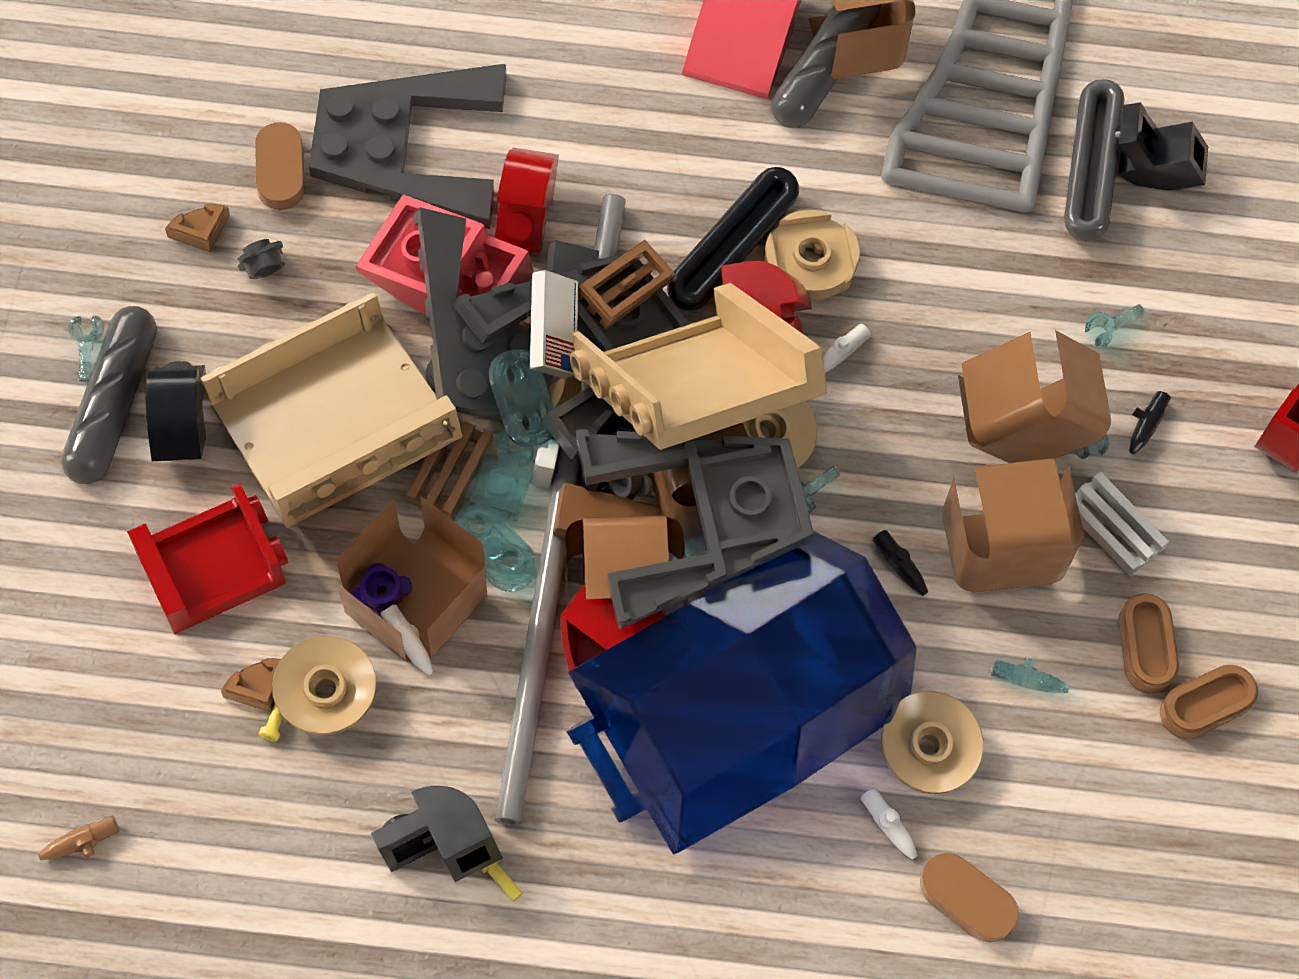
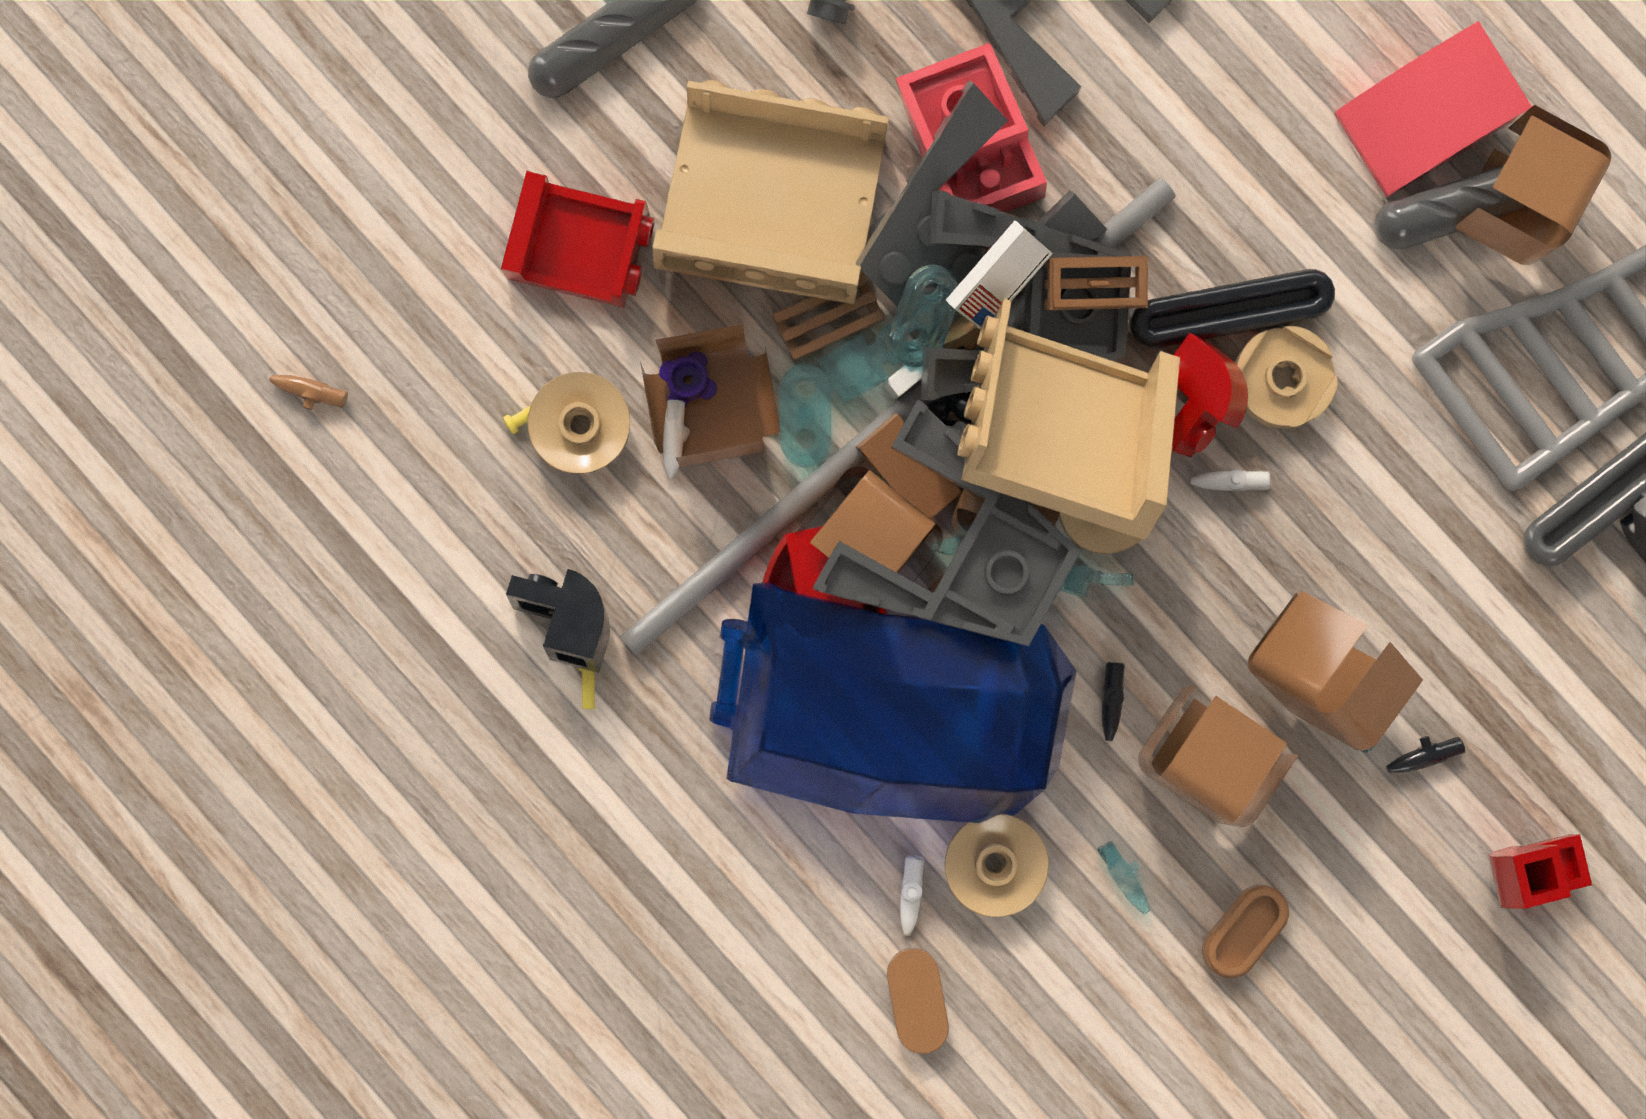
camera: 40 degrees right, 20 degrees up
(175, 411) = (649, 89): black brick -> none
(253, 685) = (531, 373): medium nougat tile -> none
(524, 197) = (1091, 126): red brick -> none
(1112, 323) = (1484, 649): clear light blue hand -> none
(1115, 511) = (1334, 816): white tile -> none
(1208, 701) = (1247, 1016): medium nougat tile -> none

